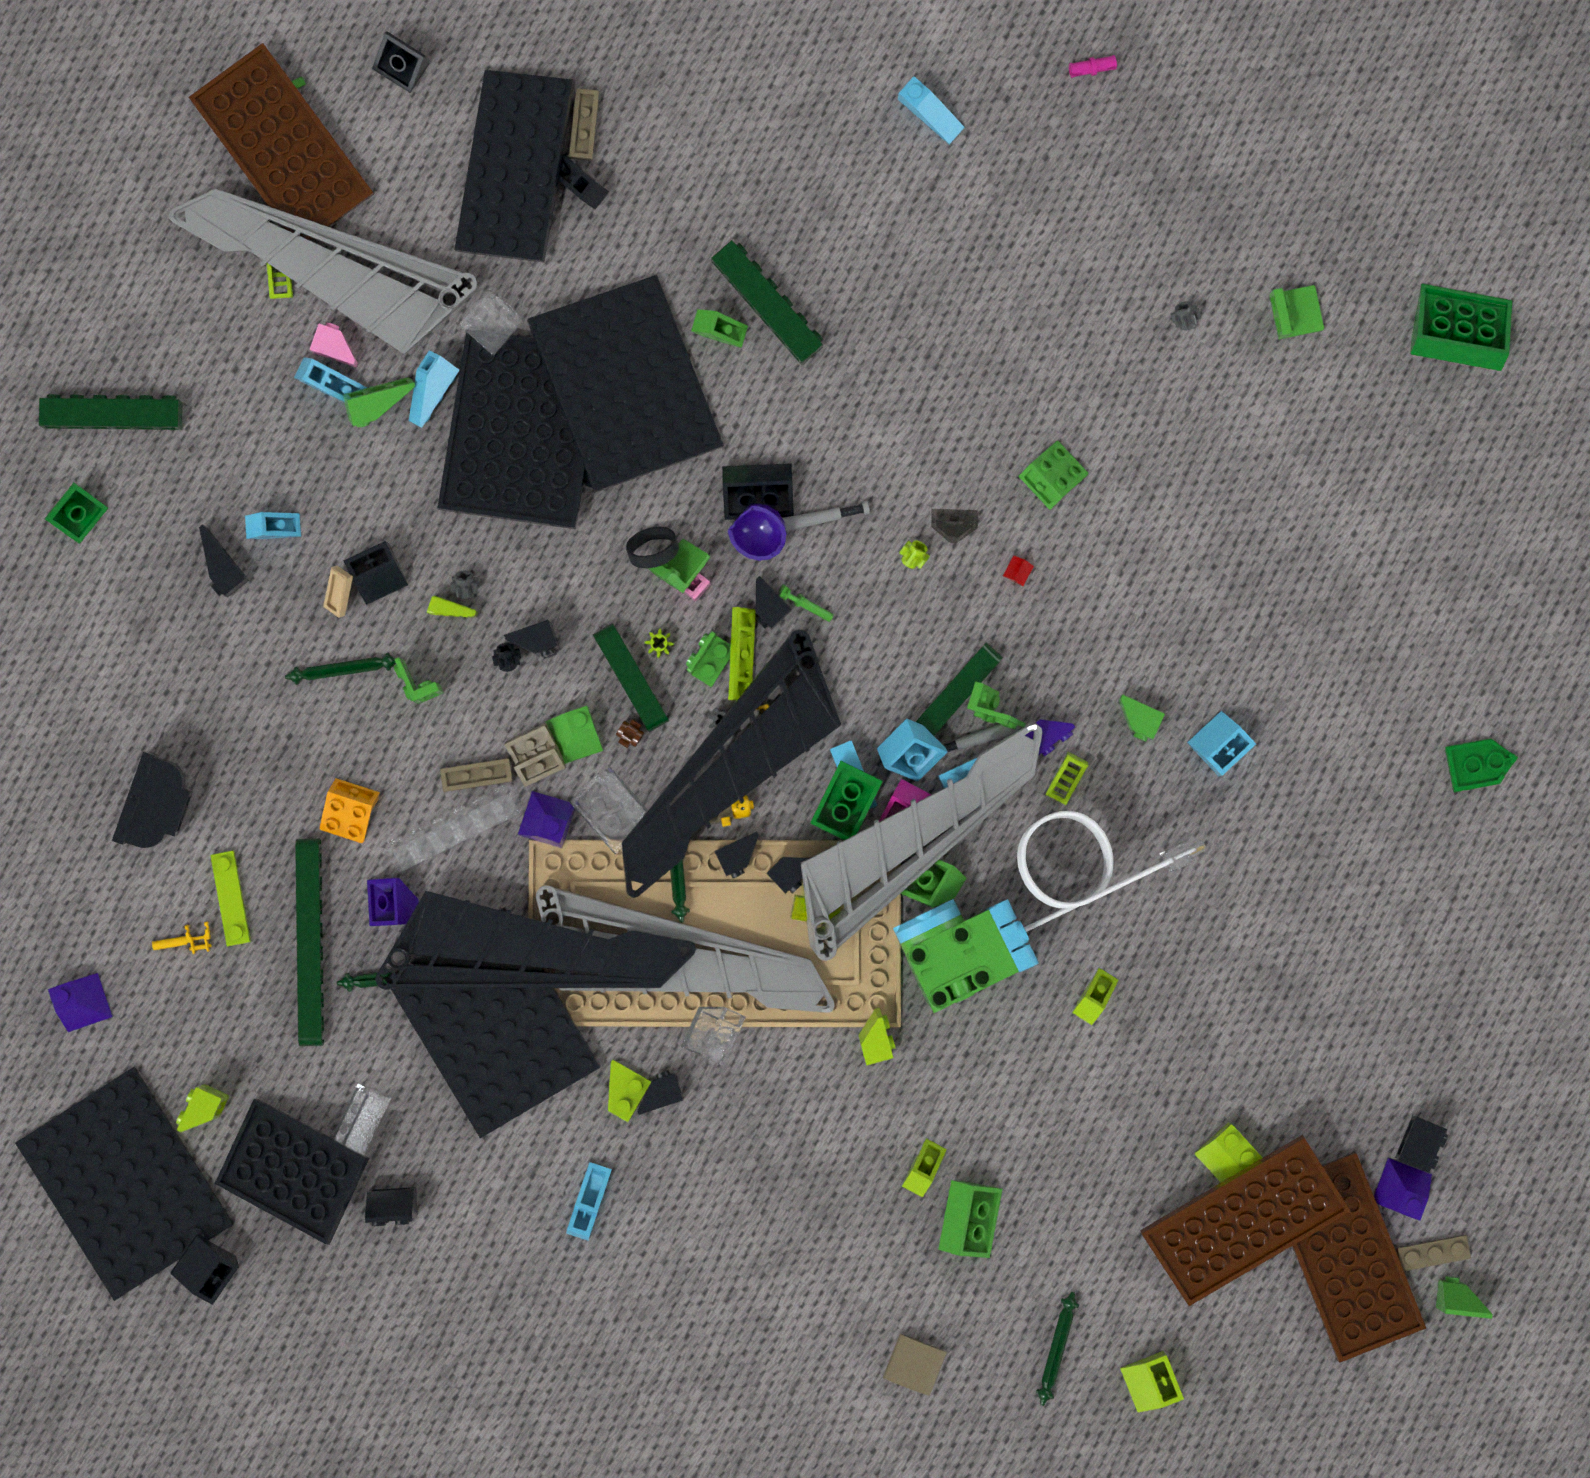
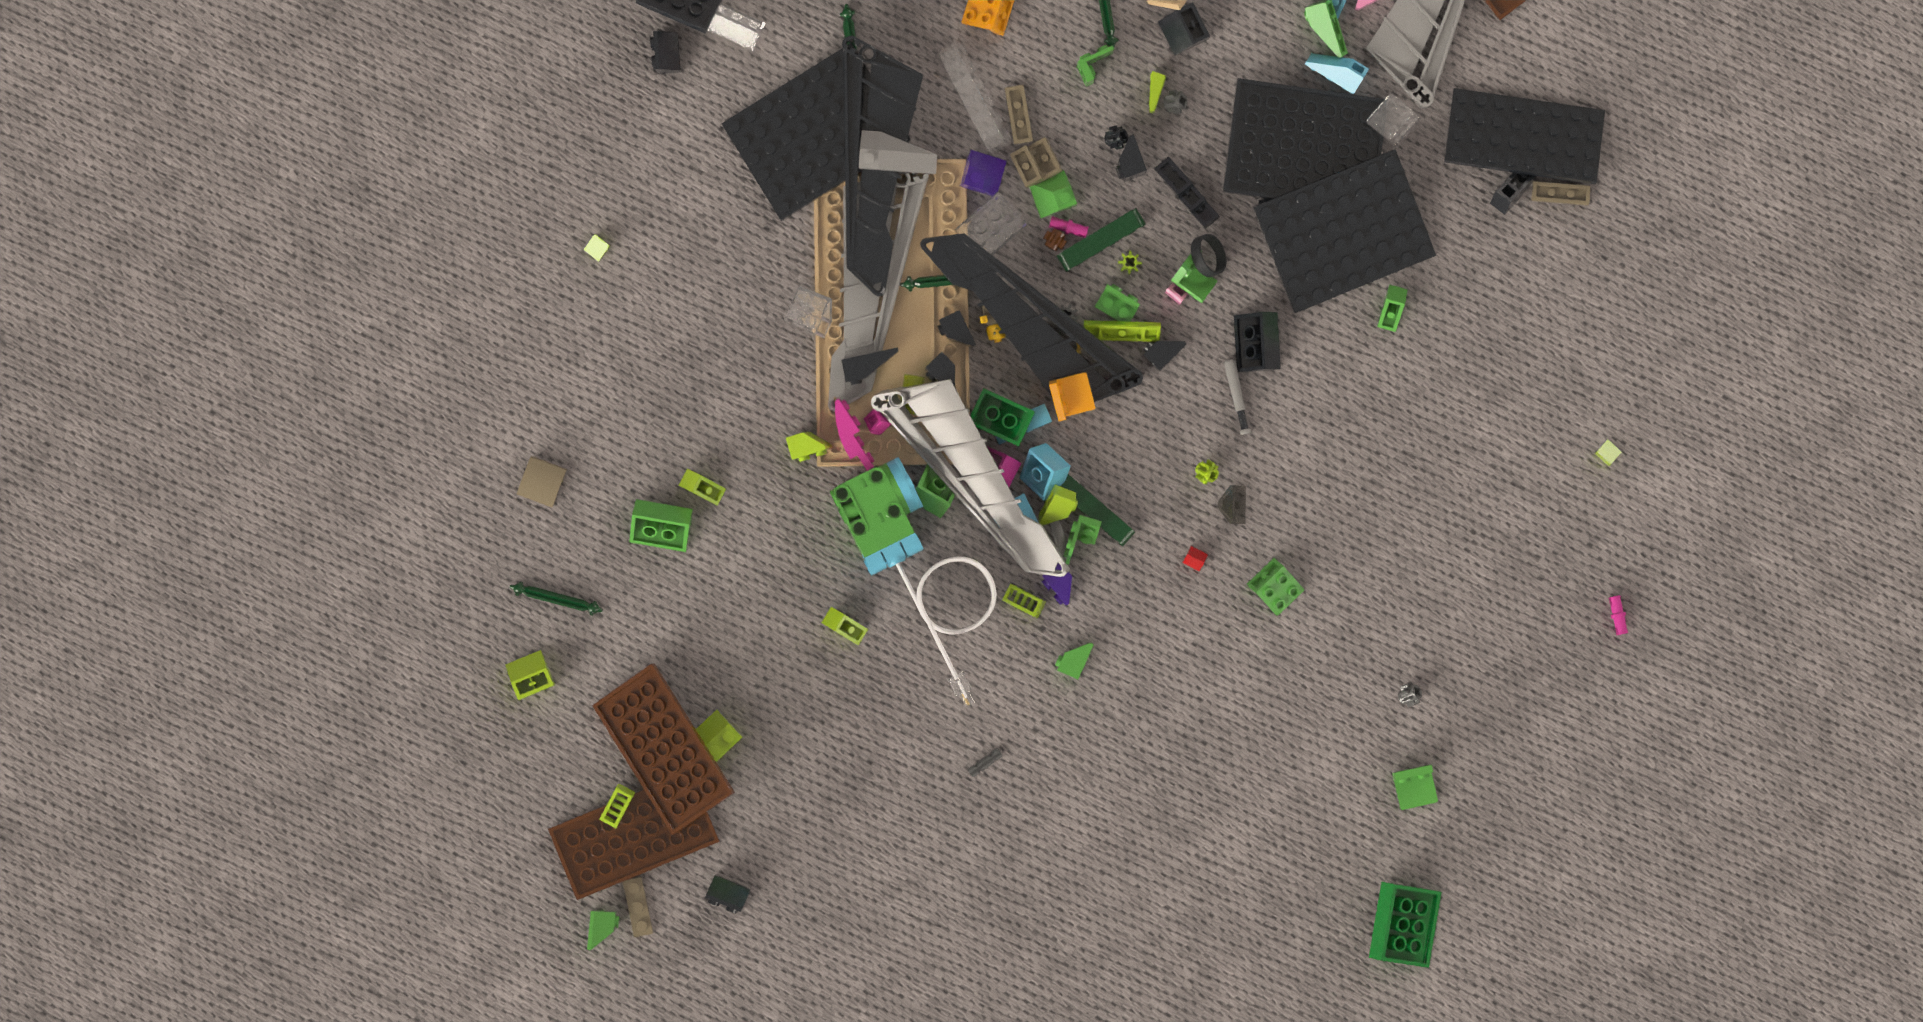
camera: 85 degrees right, 0 degrees up
(390, 902) = (913, 46): dark purple slope -> none
(400, 62) = (1608, 39): black slope -> none
(522, 931) = (889, 153): none -> light grey wedge
(575, 573) = (1186, 192): none -> black slope
(588, 1201) = (671, 213): medium azure slope -> none
(614, 716) = (1068, 227): none -> dark pink pin
(625, 1090) = (761, 241): lime wing -> none
(629, 1293) = (596, 247): none -> slope
(661, 1092) = (760, 270): black slope -> none
(758, 532) = (1222, 342): dark purple cylinder -> none
(767, 302) = (1414, 346): dark green brick -> none
(781, 970) = (864, 365): none -> black slope
(784, 592) = (1166, 378): bright green piece -> none
(820, 716) = (1071, 395): none -> light orange bracket
(849, 954) = (876, 422): none -> dark pink slope
(856, 989) = (847, 427): none -> dark pink slope
(897, 74) = (1608, 452): none -> lime slope
(930, 110) = (1578, 480): medium azure slope -> none
(954, 734) = (1058, 505): none -> lime slope
(1221, 743) = (1054, 726): medium azure slope -> none
(1262, 828) = (985, 762): none -> dark grey axle
(1298, 1270) = (624, 791): none -> lime slope
(1403, 1189) = (690, 881): dark purple slope -> none
(1478, 764) = (1041, 941): green tile -> none

